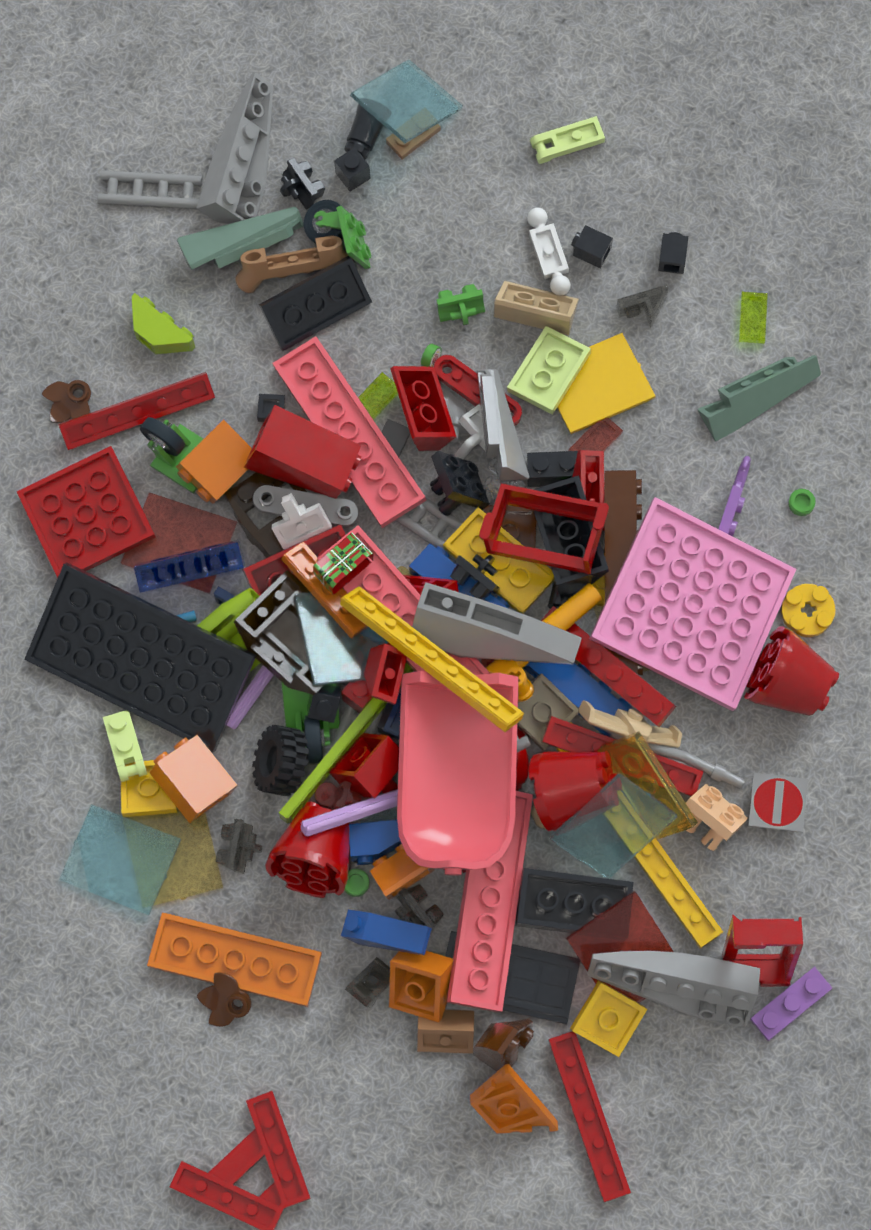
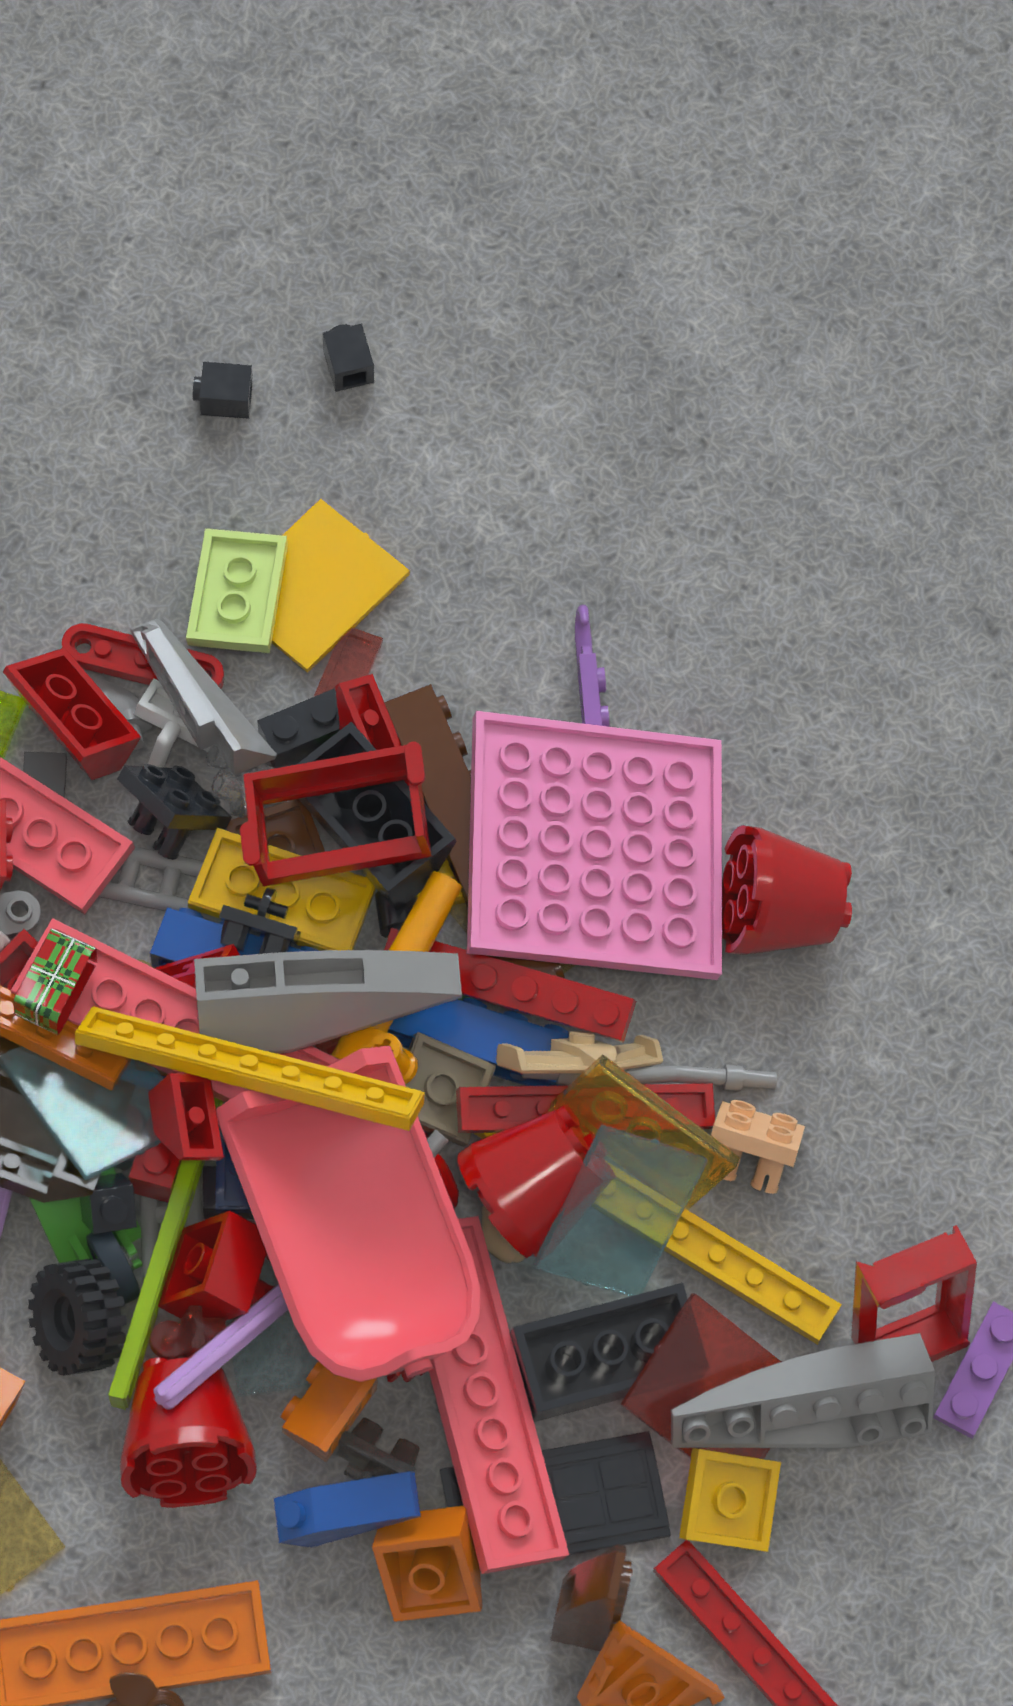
camera: 30 degrees left, 5 degrees down
(241, 846) = (69, 1470): clear smoke hips -> none
(357, 883) = (270, 1455): bright green tile -> none
(370, 983) = (353, 1595): clear smoke slope -> none
(372, 840) = (269, 1379): blue slope -> none
(430, 355) = (51, 634): bright green tile -> none
(449, 1035) = (507, 1622): medium nougat panel -> none
(461, 305) = (65, 546): bright green hips -> none
(535, 307) = (177, 509): tan slope -> none
(548, 251) = (163, 420): white plate -> none
(568, 139) = (122, 250): yellowish green plate -> none
(647, 301) = (340, 439): clear smoke slope -> none
(753, 317) = (502, 407): clear neon green tile -> none
(757, 393) = (554, 514): sand green wedge -> none
(778, 802) = (839, 1085): piece -> none
(798, 621) = (768, 771): yellow plate -> none
(801, 502) = (686, 643): bright green tile -> none

